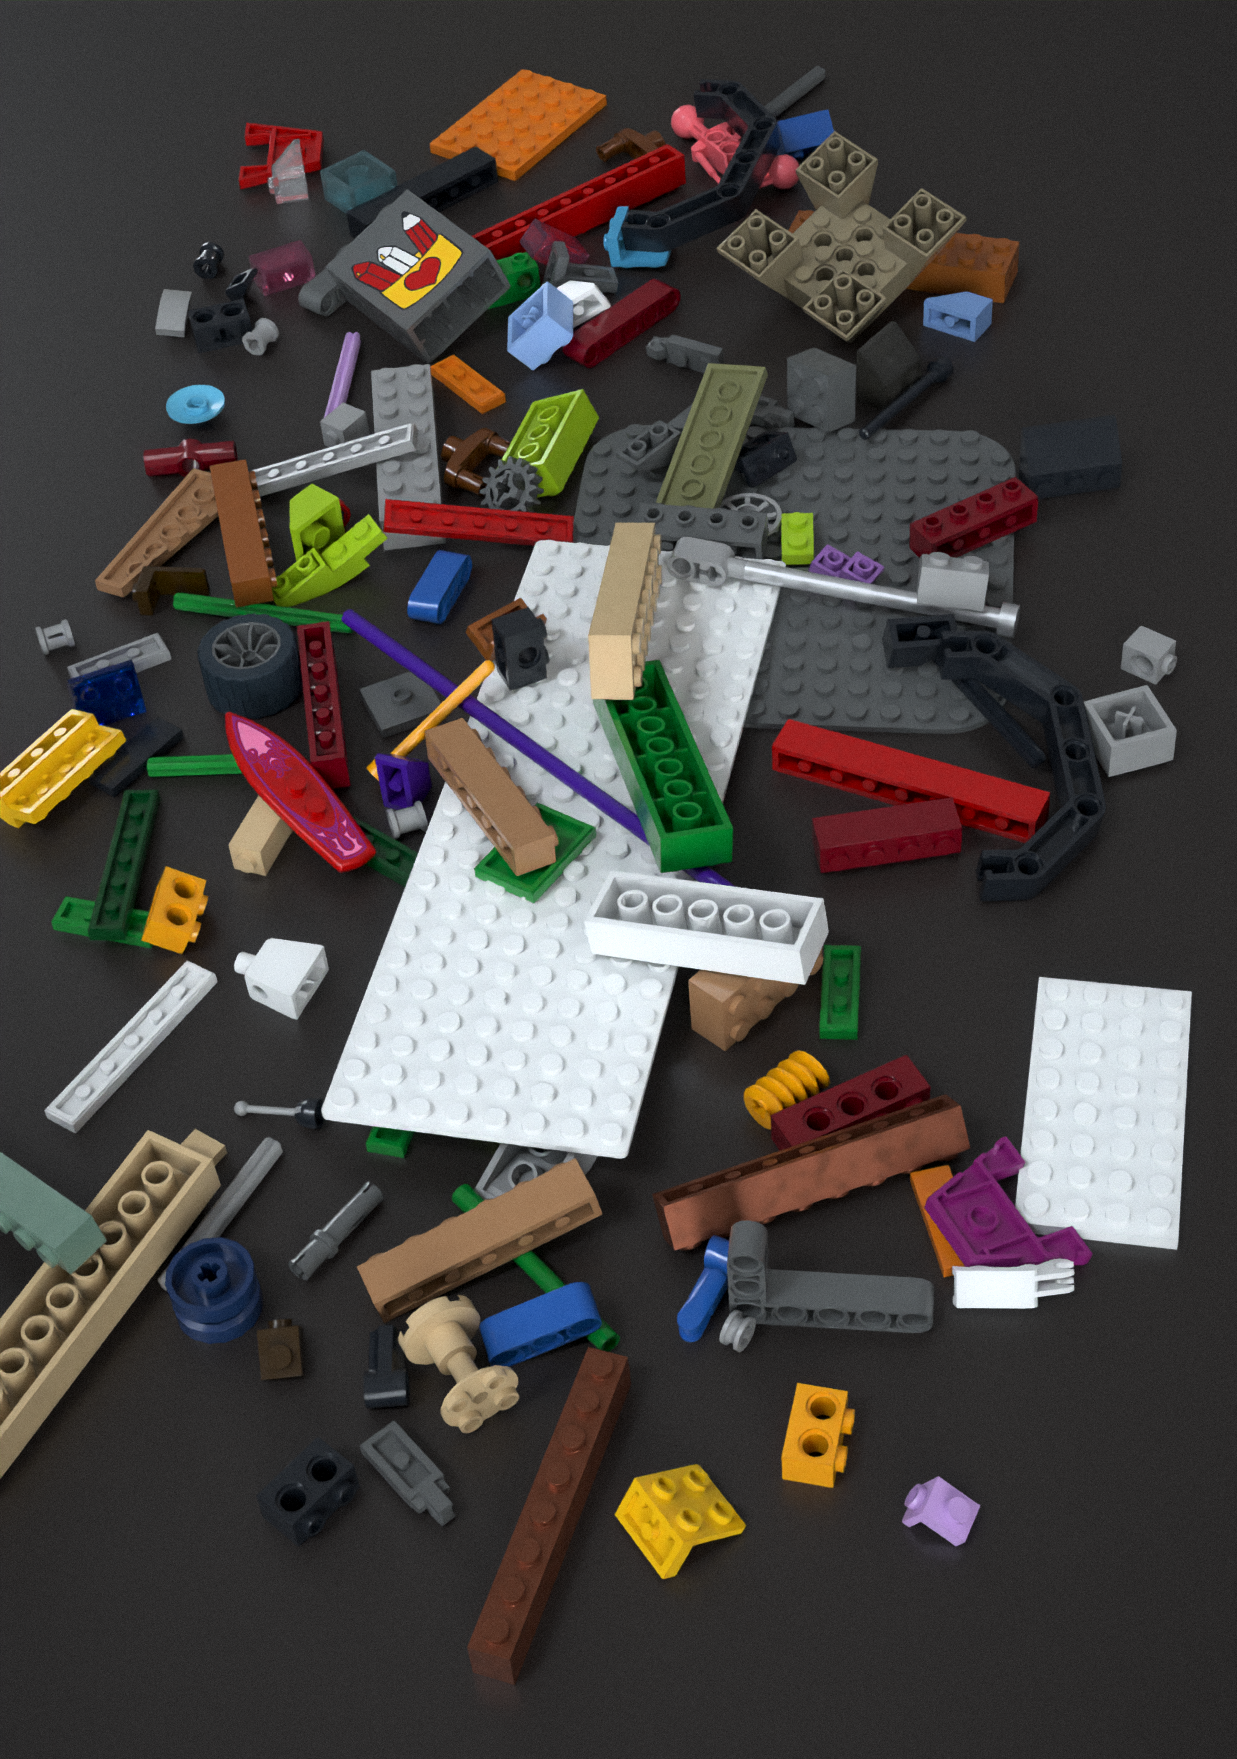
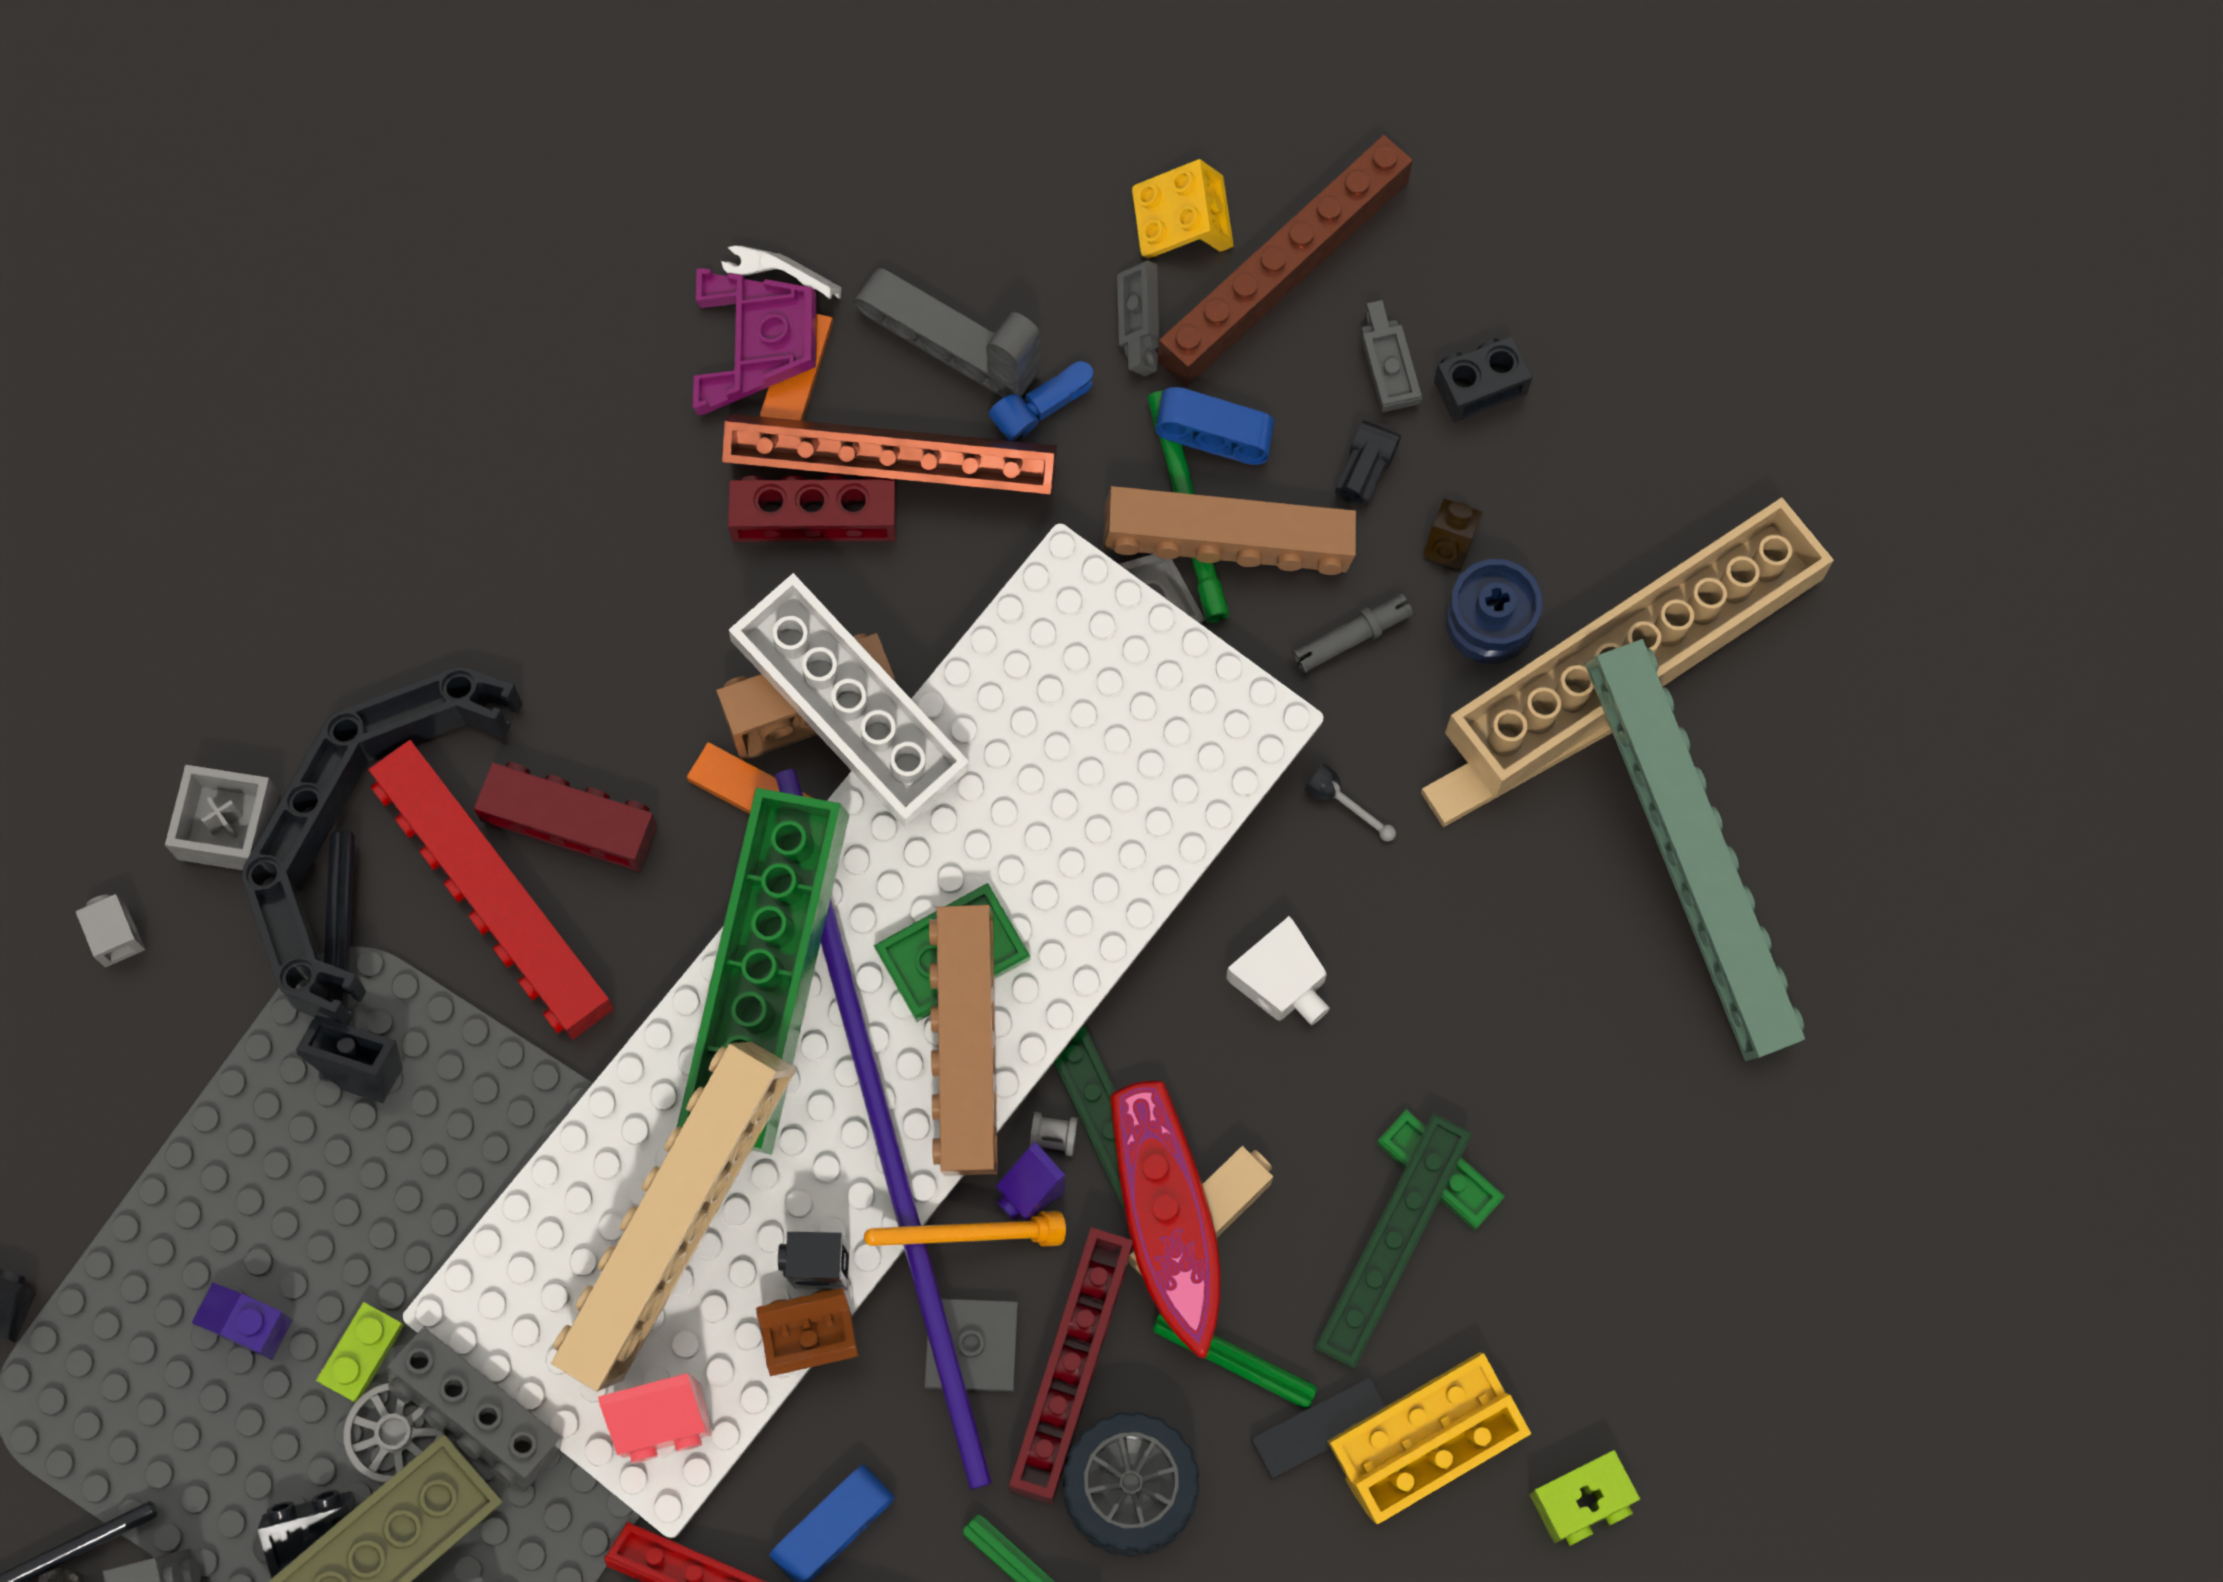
camera: 160 degrees left, 25 degrees up
(108, 693) = (1325, 1540): clear blue slope -> none
(130, 1047) = (1469, 976): white tile -> none
(175, 910) = (1374, 1124): light orange brick -> none
(234, 1195) = (1436, 722): light grey axle -> none
(443, 1335) = (1307, 444): tan piece -> none
(578, 560) = (656, 1417): none -> coral slope
(667, 1398) = (1139, 316): none -> dark grey hinge
(713, 561) = (493, 1320): flat silver piece -> none
(737, 1330) = (1049, 346): light grey bush -> none
(785, 1086) = (856, 562): light orange piece -> none
(810, 1434) = (1042, 225): light orange brick -> none
(837, 564) = (340, 1259): medium lavender slope -> none
(840, 992) = (723, 666): green tile -> none
(879, 515) = (242, 1320): none -> dark purple slope
(941, 1509) = (975, 117): lavender bracket -> none
(952, 581) = (246, 1135): light grey slope -> none
(975, 520) = (144, 1244): dark red brick -> none
(1106, 1112) = (575, 411): white plate -> none

